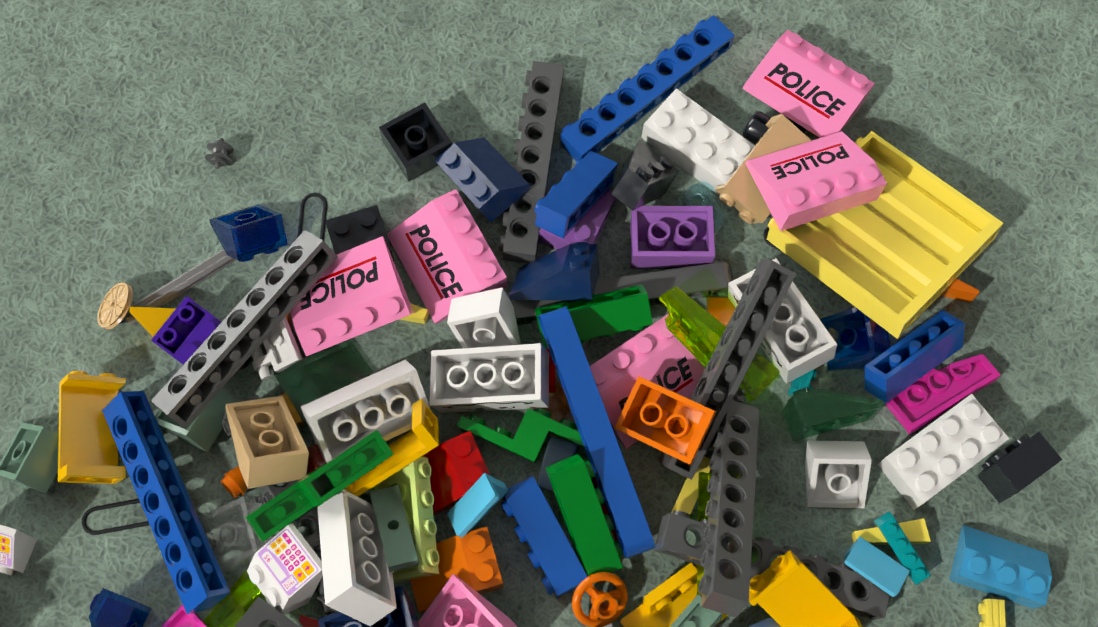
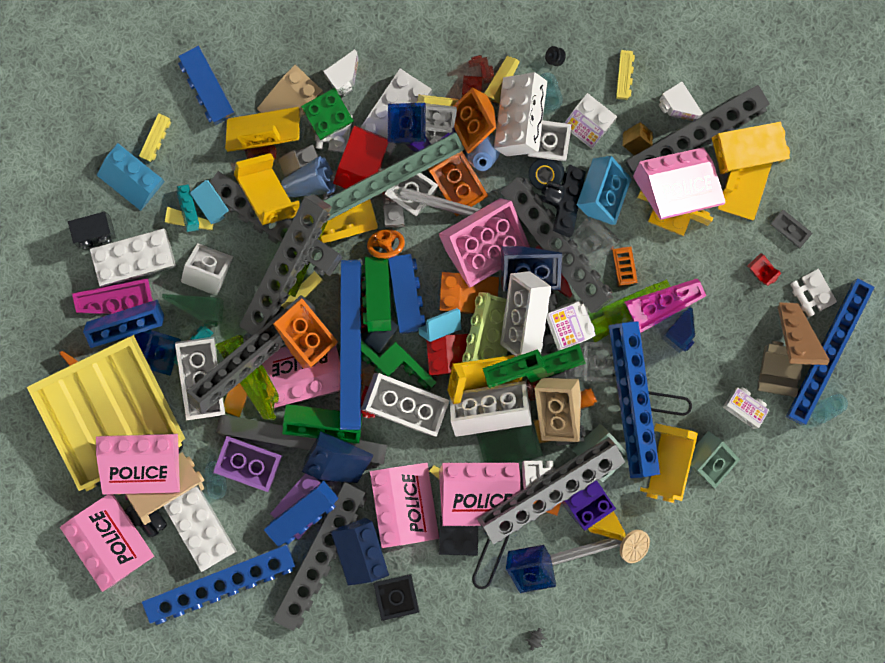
camera: 155 degrees left, 15 degrees up
(391, 515) = (497, 337): sand green tile -> none
(484, 320) = (395, 445): white slope -> none
(644, 177) = (251, 512): black wedge -> none

